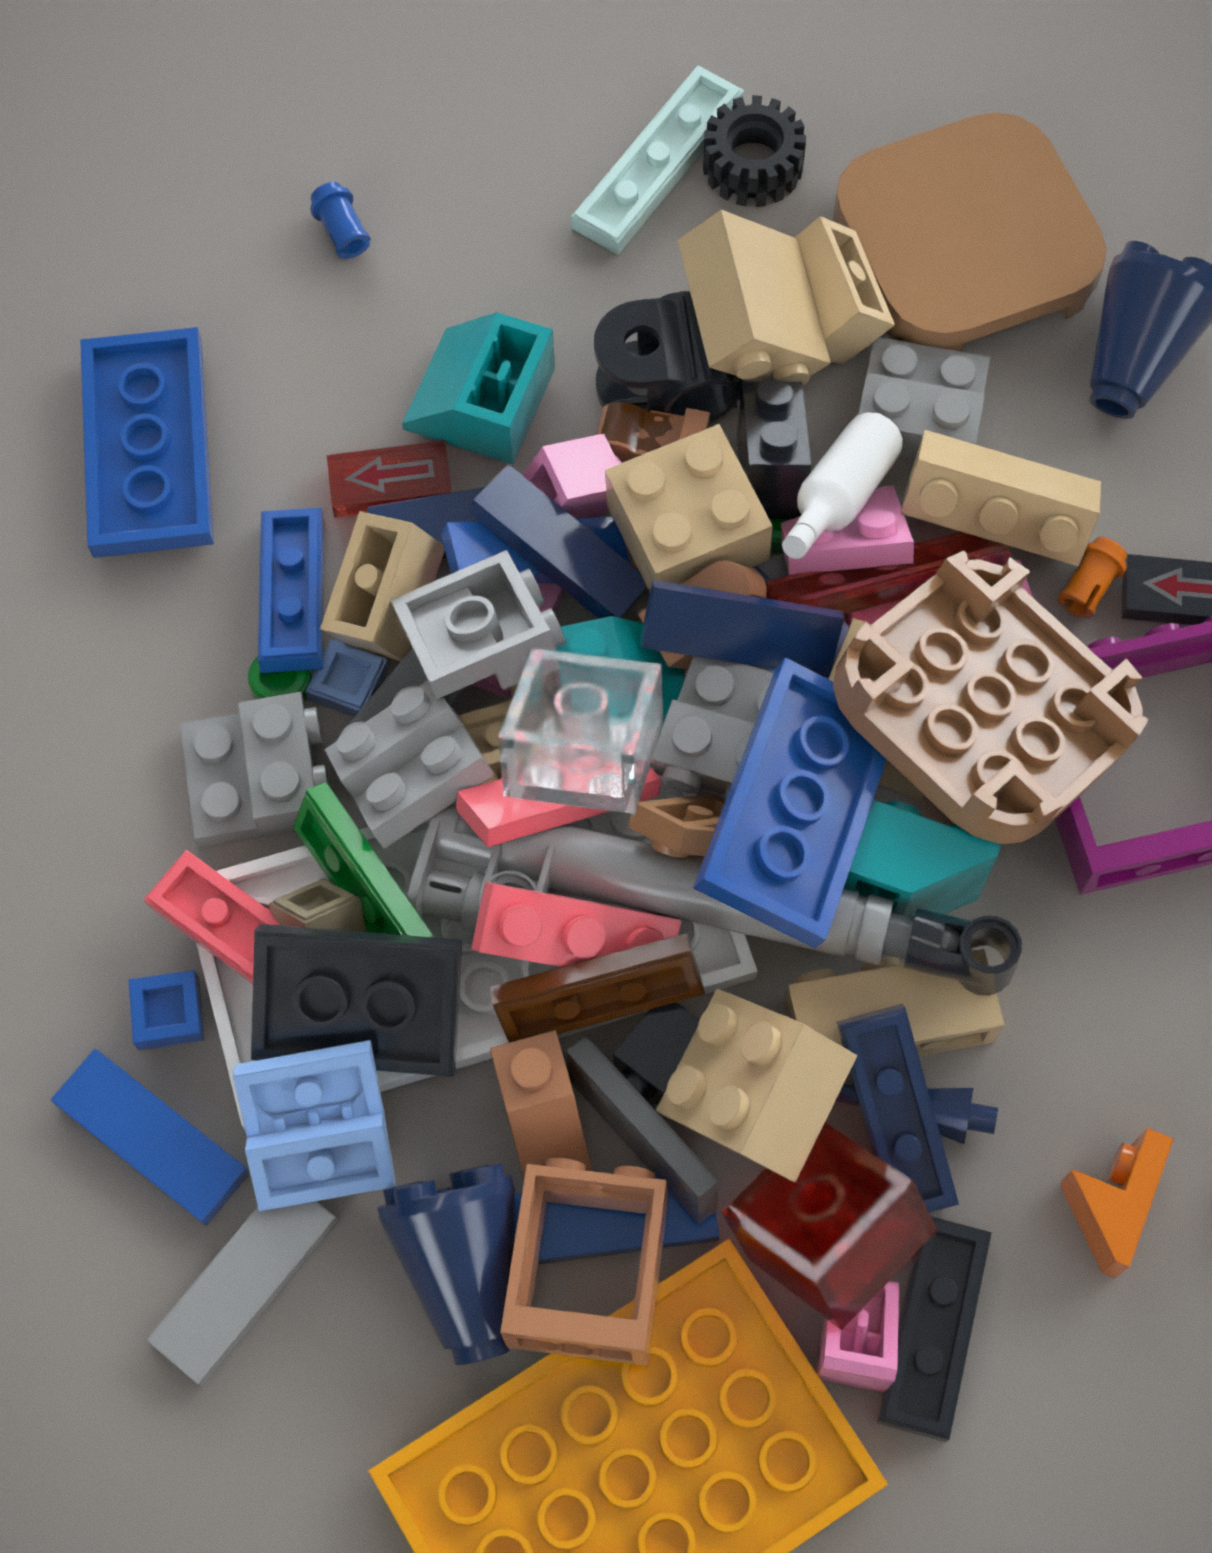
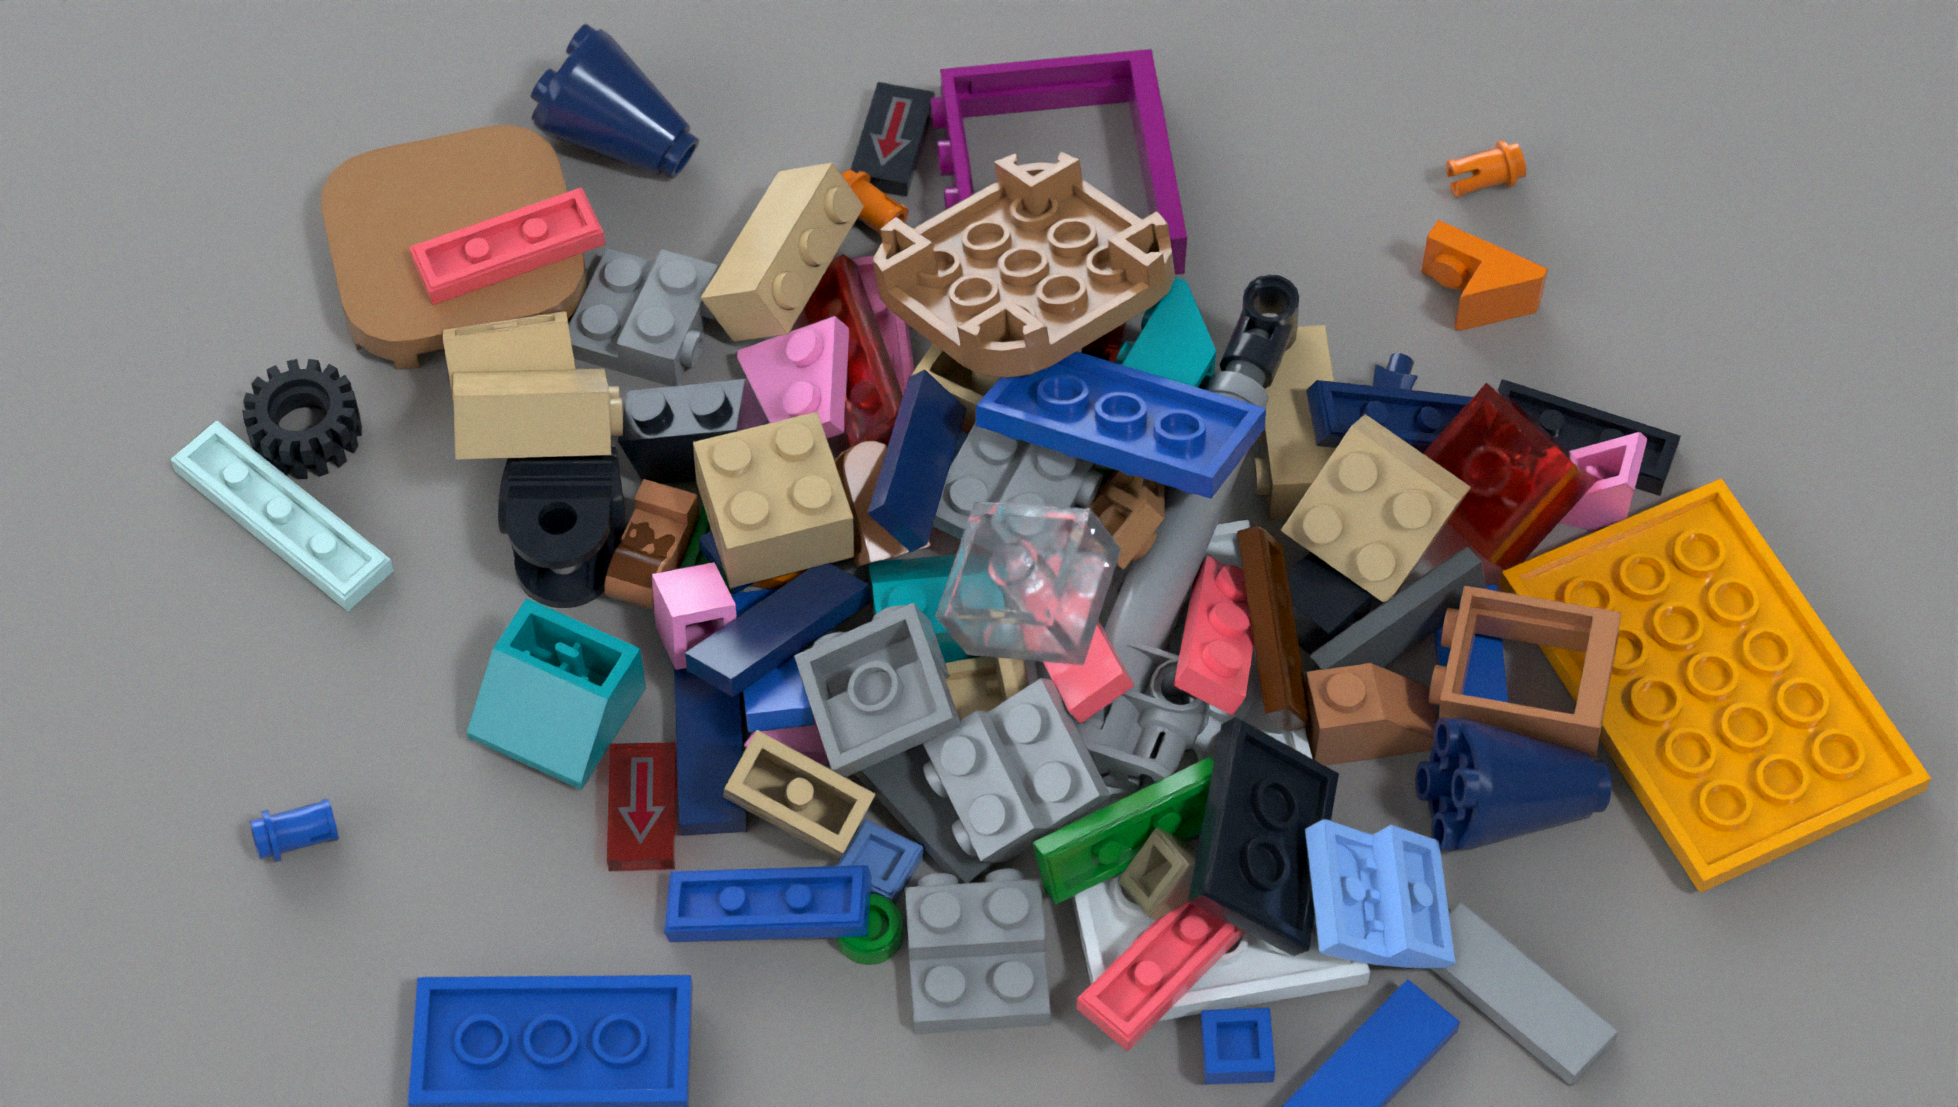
camera: 85 degrees left, 10 degrees down
(844, 480) = (769, 362): white piece -> none
(957, 264) = (507, 245): none -> coral tile

